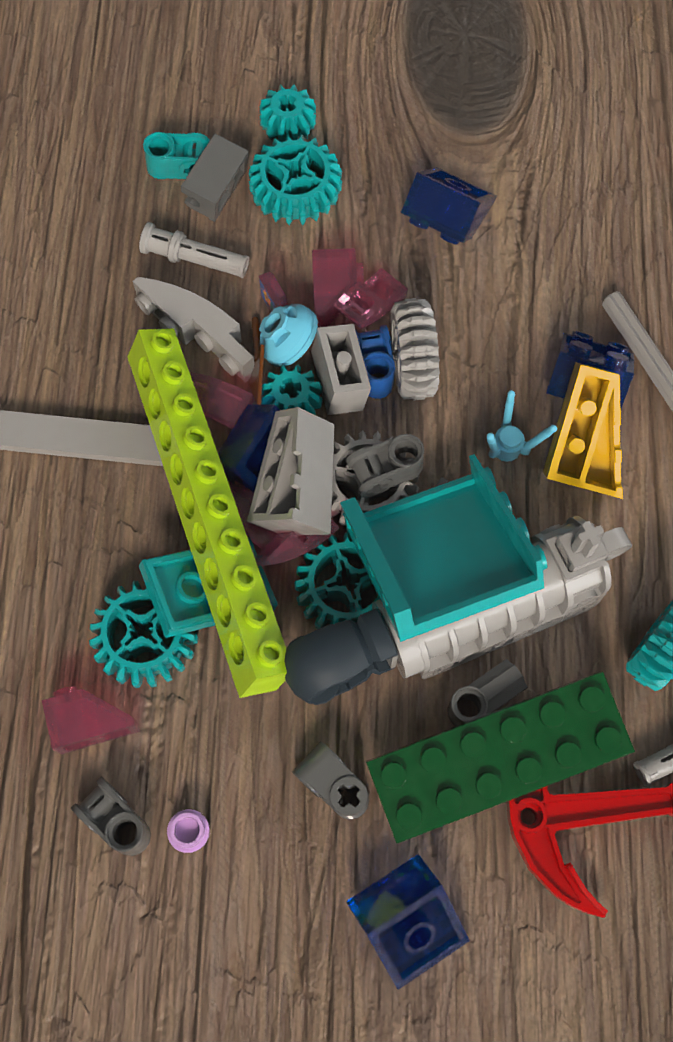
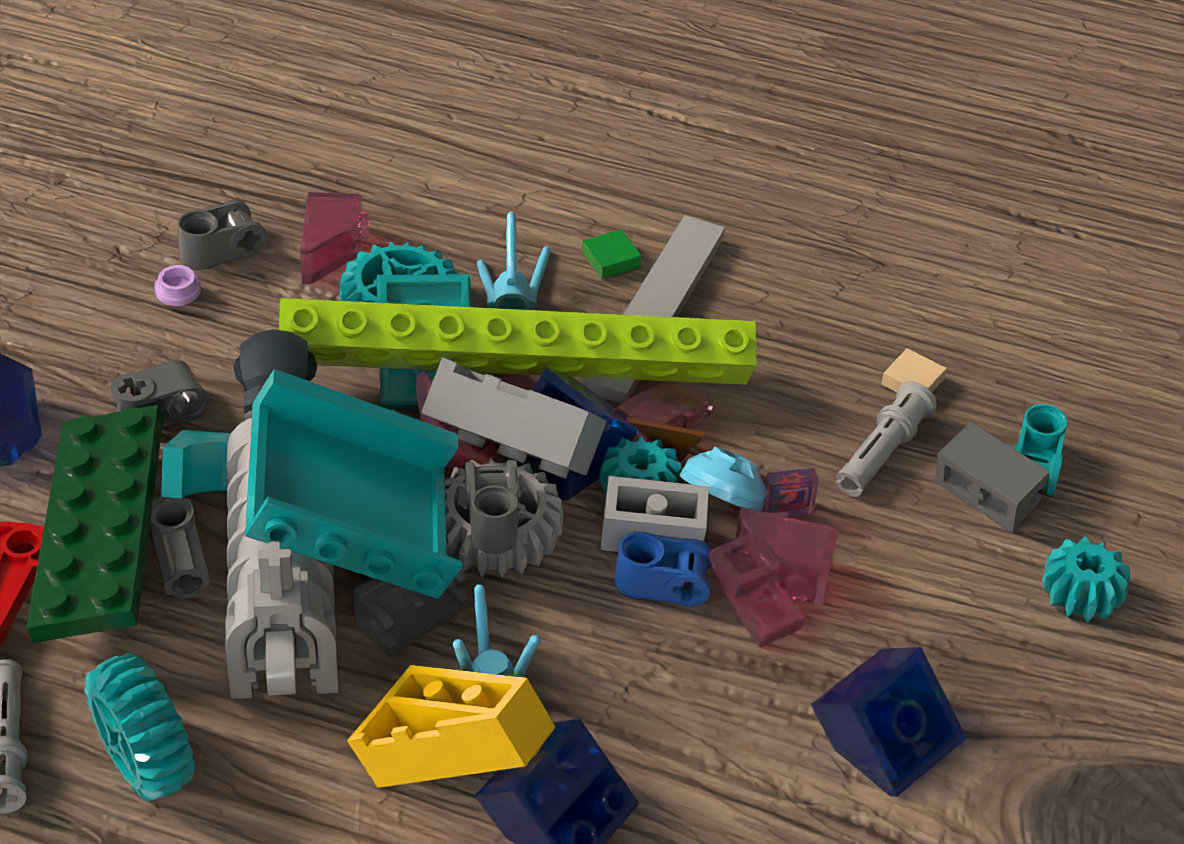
camera: 105 degrees right, 25 degrees down
(36, 489) = (611, 253): none -> green tile
(112, 546) = (512, 287): none -> medium azure plant
(115, 248) = (913, 367): none -> tan tile
(198, 319) = (783, 415): light grey slope -> none
(301, 190) = (971, 560): teal gear -> none
(401, 706) = (194, 463): none -> teal arch
(415, 349) = (652, 589): light grey gear -> none

